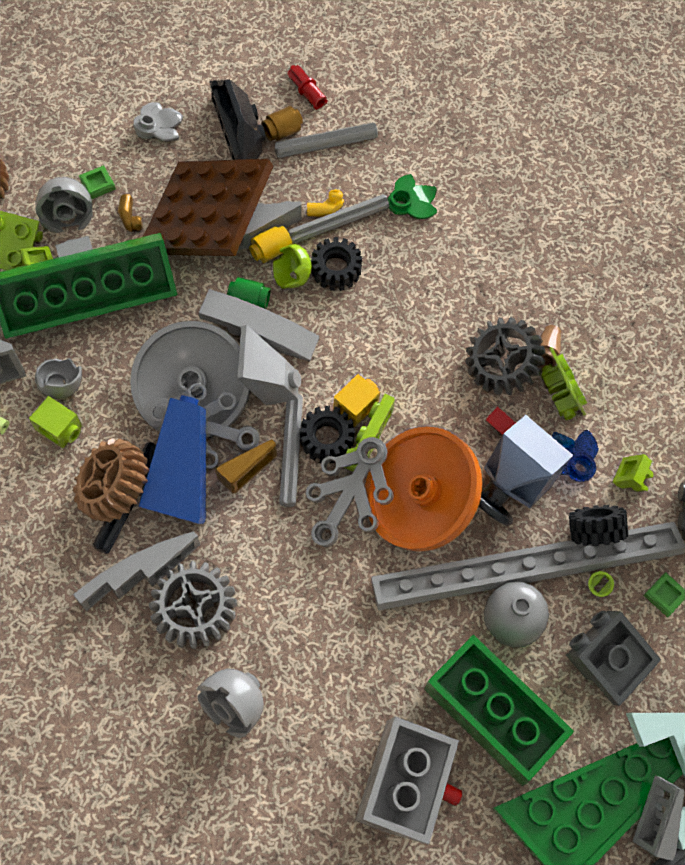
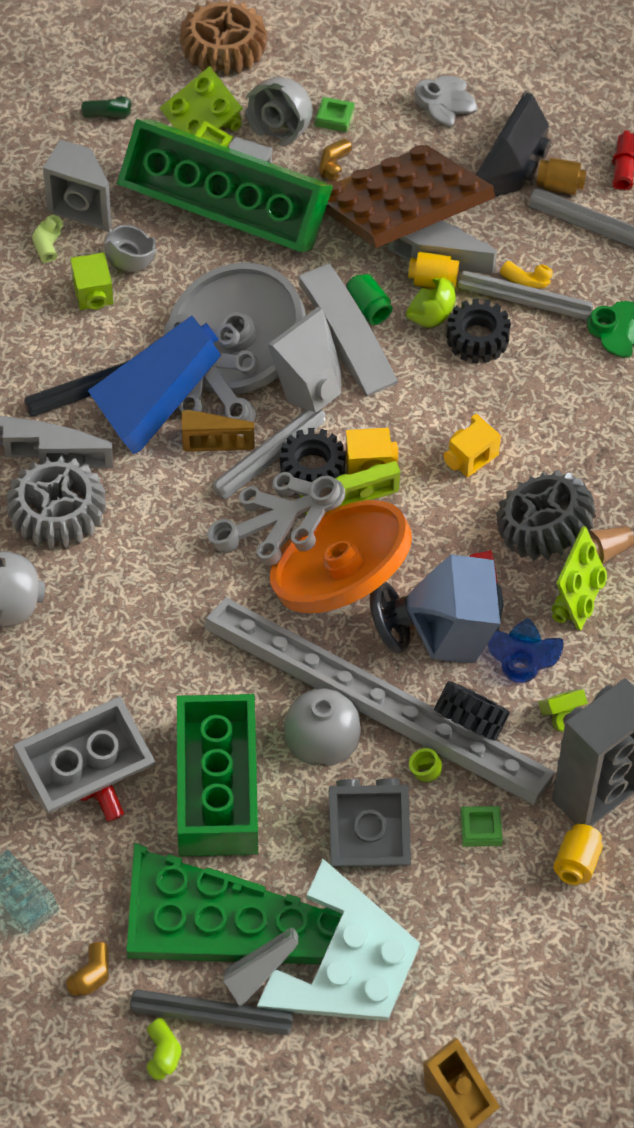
camera: 45 degrees right, 10 degrees down
(110, 480) = (85, 352): medium nougat gear -> none
(412, 344) = (472, 447): none -> yellow brick

